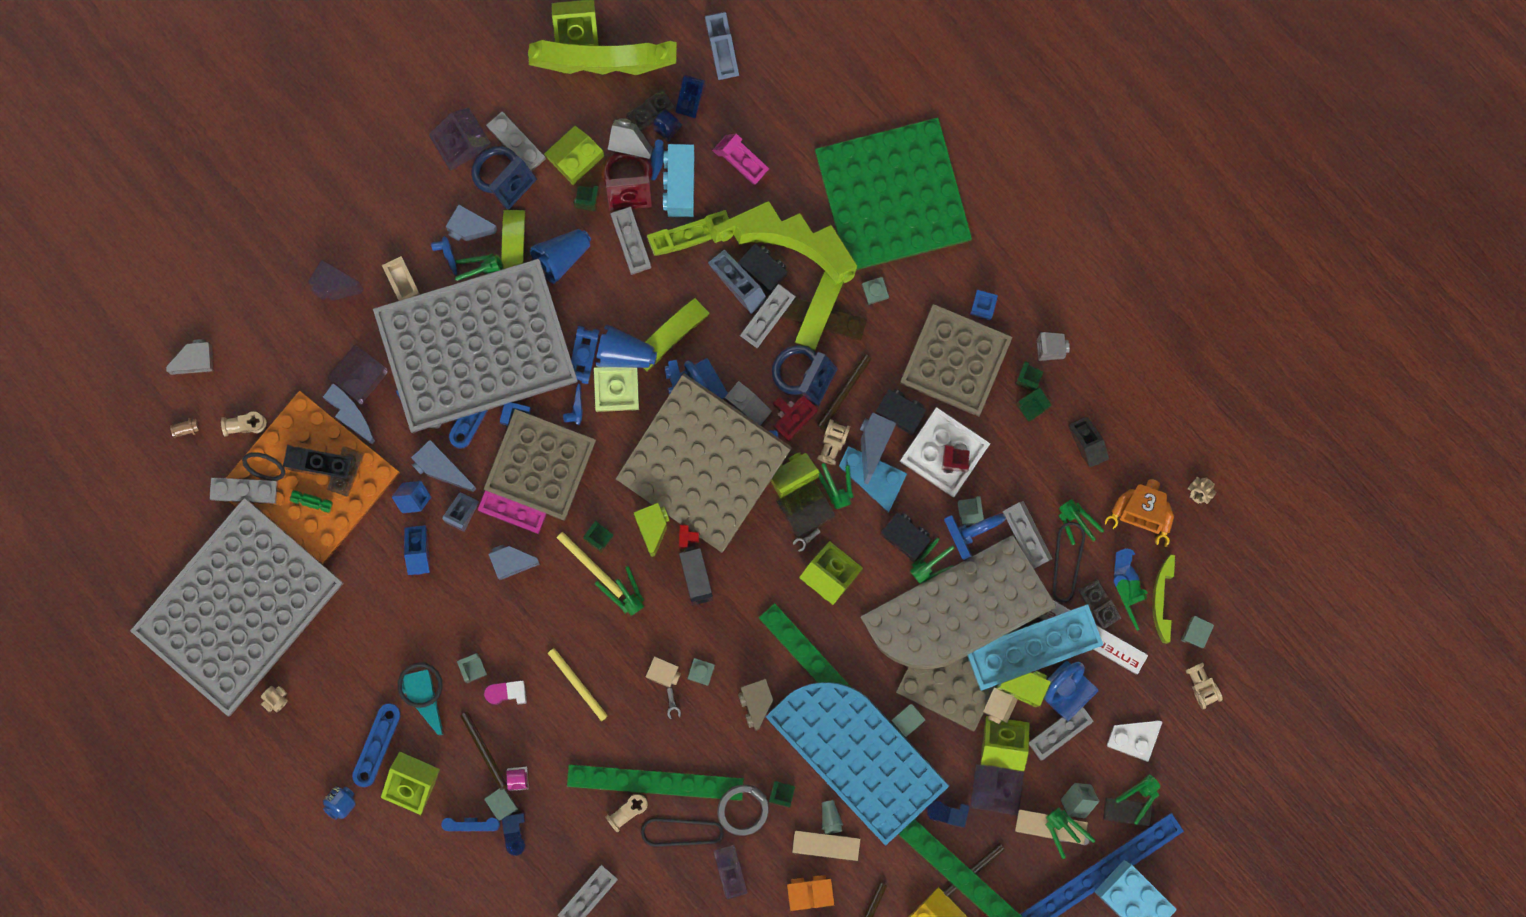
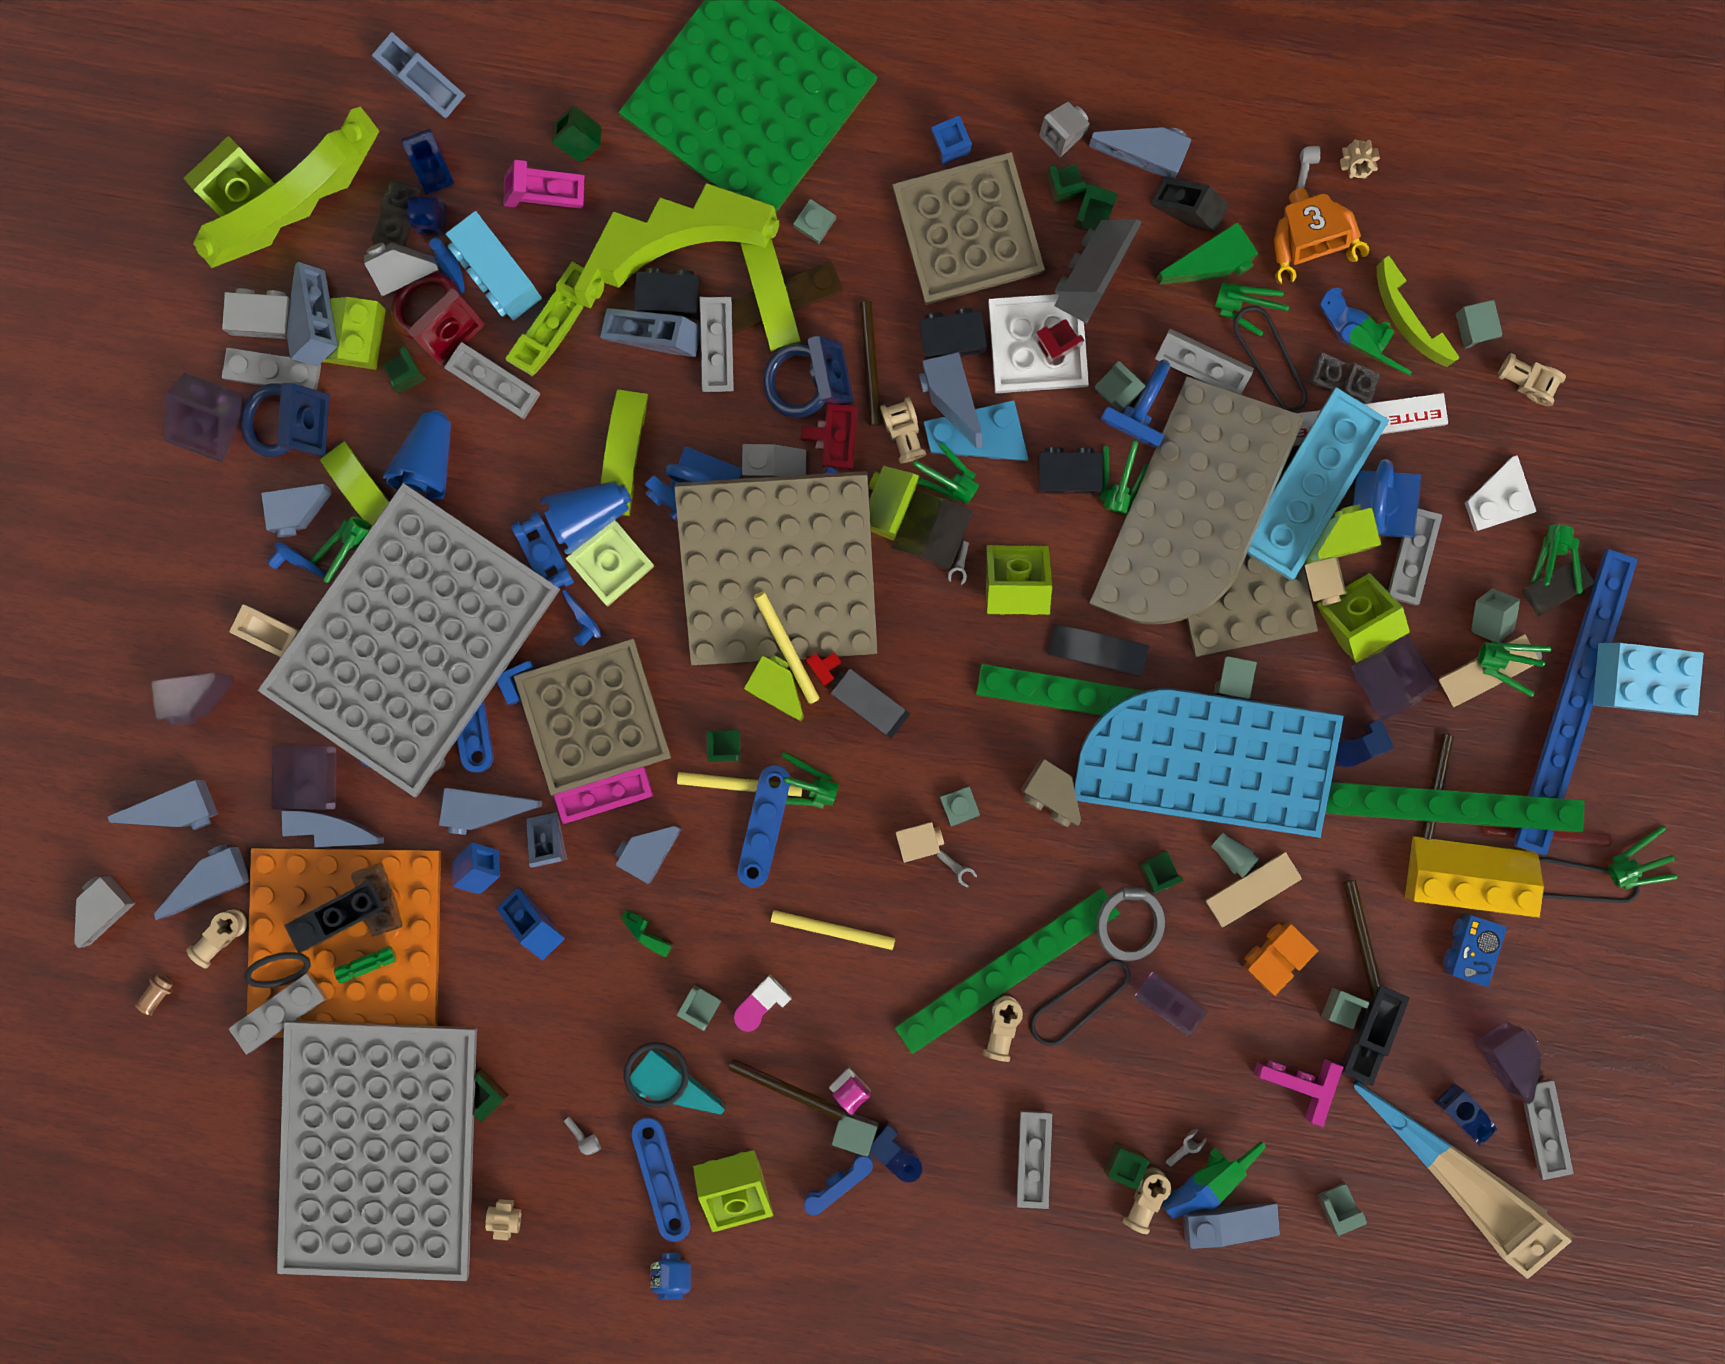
camera: 35 degrees left, 5 degrees up
(263, 389) = (208, 879): none -> sand blue slope
(280, 338) = (179, 807): none -> sand blue slope
(319, 625) = (487, 1095): none -> dark green panel
(351, 696) = (586, 1145): none -> light grey hand
(474, 597) = (637, 925): none -> green slope
(533, 107) = (256, 314): none -> light grey brick
(560, 130) = (310, 316): none -> sand blue slope
(585, 597) = (763, 826): none -> blue plate
(675, 506) = (786, 647): none -> light yellow bar
(782, 143) = (576, 134): none -> dark green panel
(844, 646) = (1098, 650): none -> black slope
(1007, 435) = (1095, 267): none -> dark grey slope
(1081, 483) = (1215, 259): none -> green slope
(1090, 394) = (1150, 149): none -> sand blue slope
(1176, 466) = (1308, 156): none -> light grey hand

